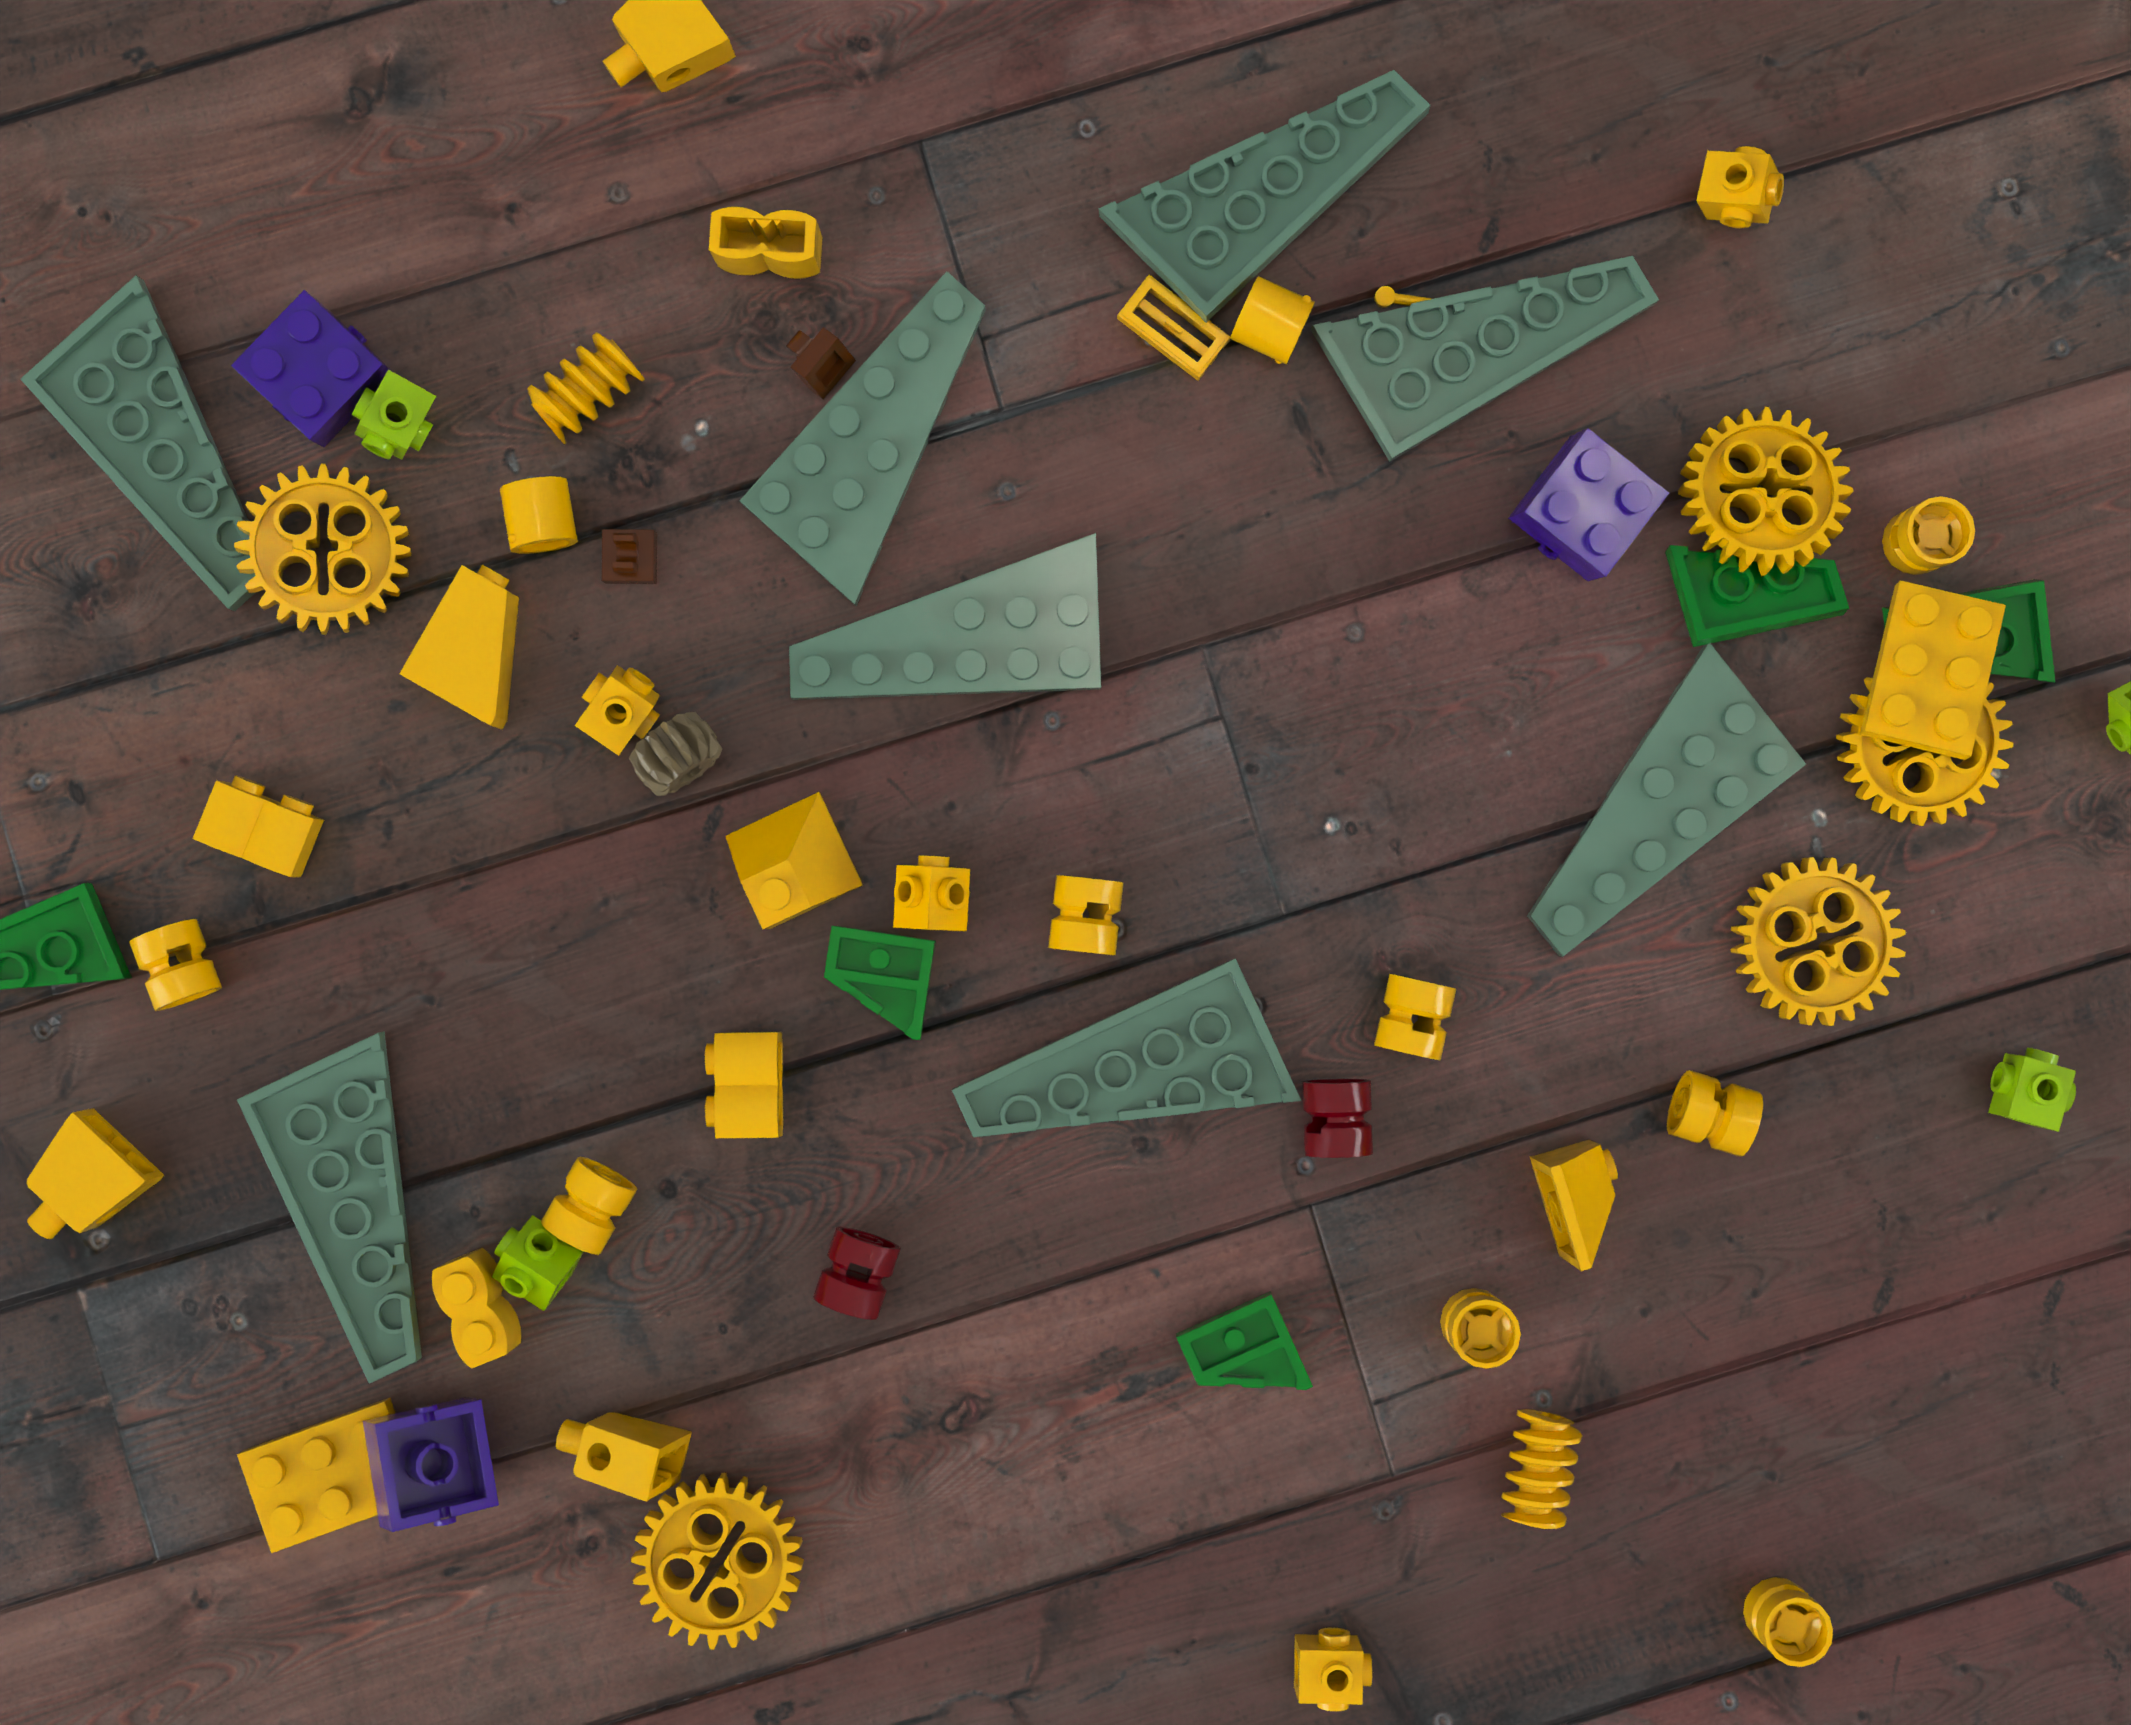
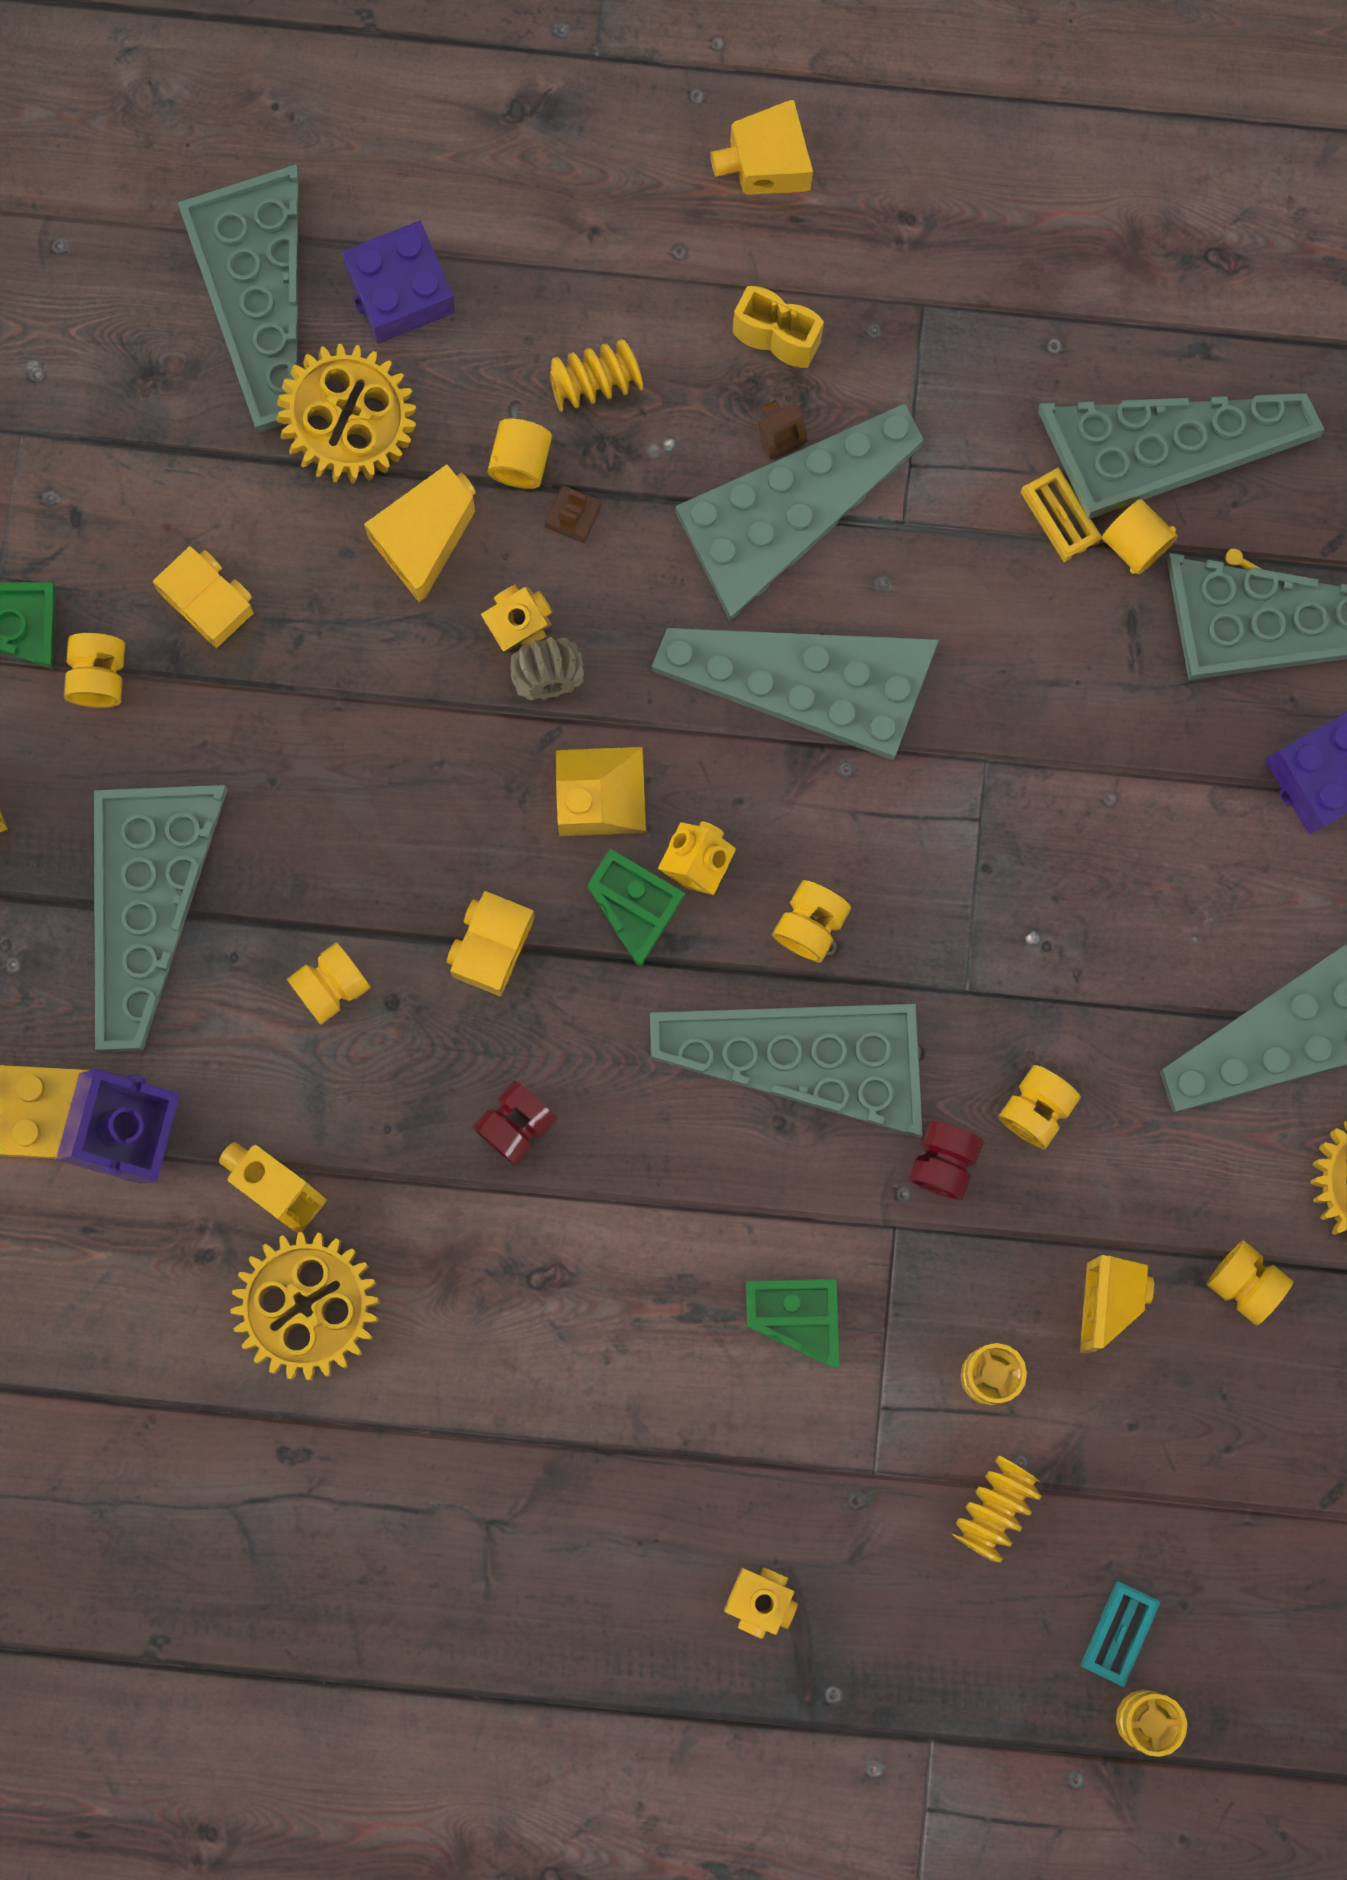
camera: 20 degrees right, 10 degrees down
(403, 402) = (443, 339): lime brick -> none
(482, 1319) = (203, 1038): yellow brick -> none
(534, 1263) = (268, 1009): lime brick -> none
(1697, 1521) = (1103, 1626): none -> teal tile

